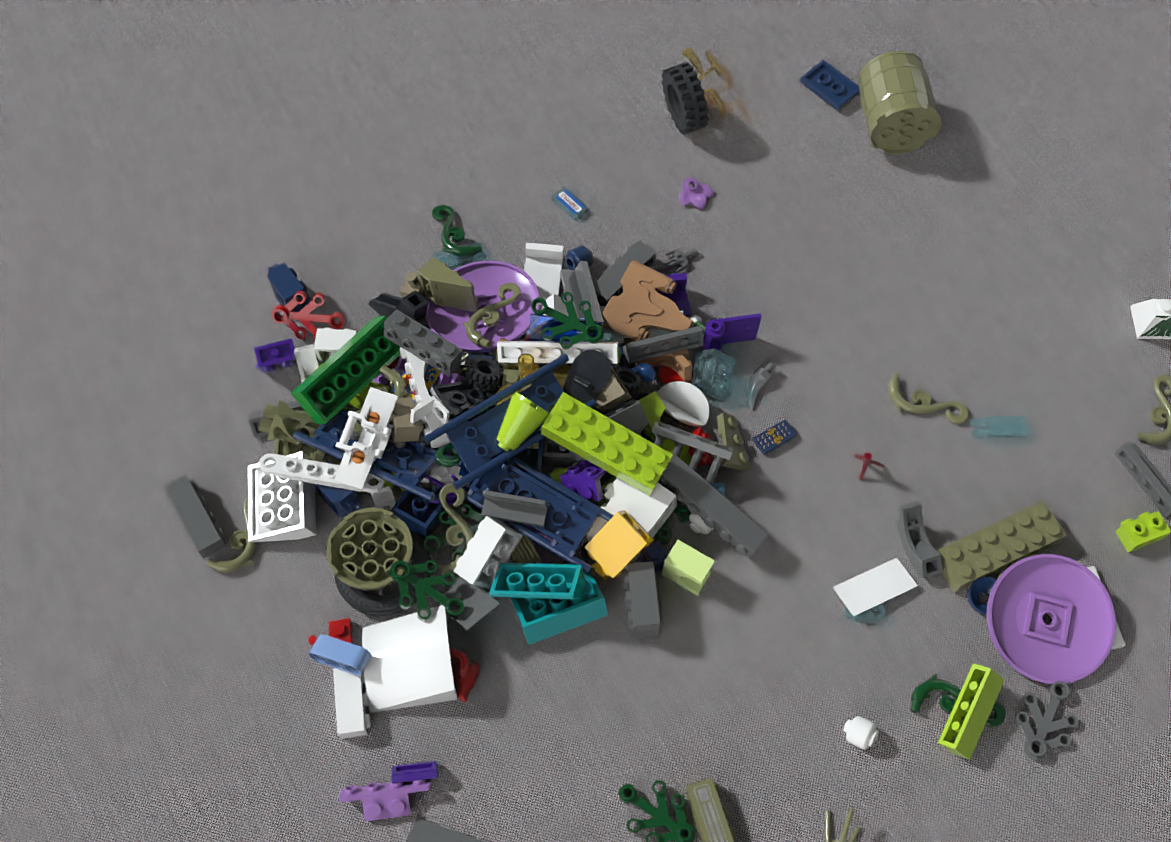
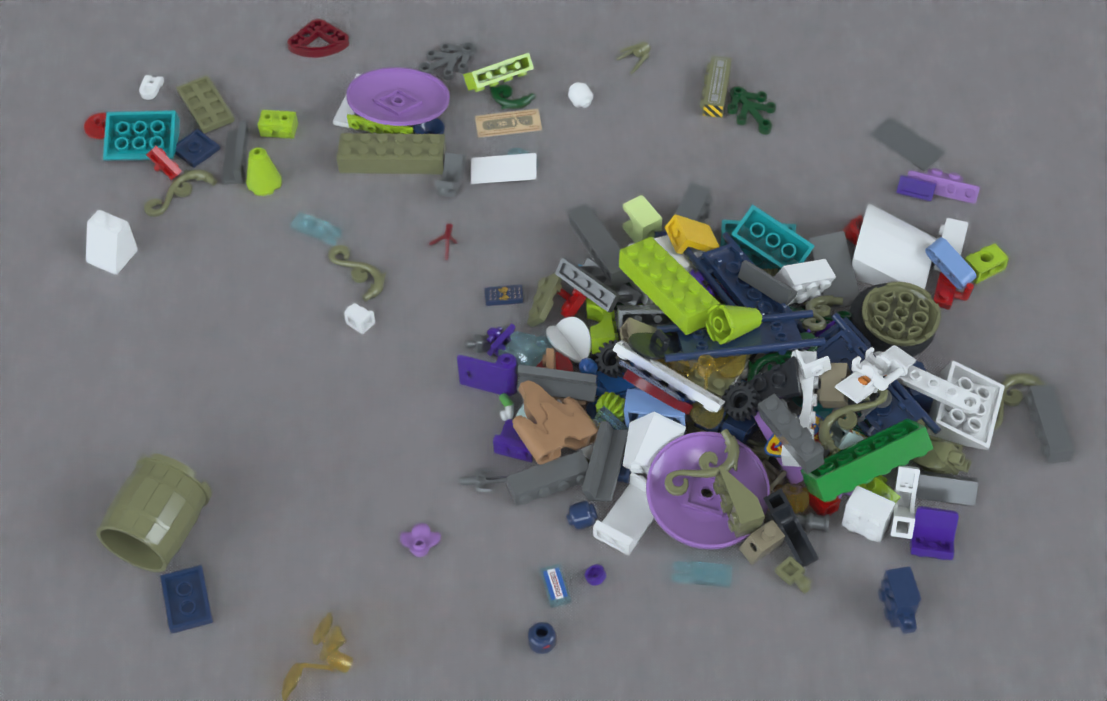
camera: 150 degrees left, 10 degrees down
(305, 316) = (860, 539): red plant -> none
(307, 681) = (987, 262): none -> lime brick
(385, 284) = (792, 573): none -> olive plate
(423, 587) = (879, 278): dark green plant -> none
(457, 234) = (704, 600): dark green plant -> none
(543, 221) = (595, 574): none -> dark purple tile
(556, 156) = (541, 637): none -> dark blue head
(570, 322) = (634, 357): dark green plant -> none
(685, 98) = (367, 618): black tyre -> none
(746, 383) = (494, 334): none -> dark purple hips
(885, 350) = (359, 318): none -> white brick
(915, 661) = (508, 123): none -> sticker
(1100, 458) = (262, 173): none -> lime cone

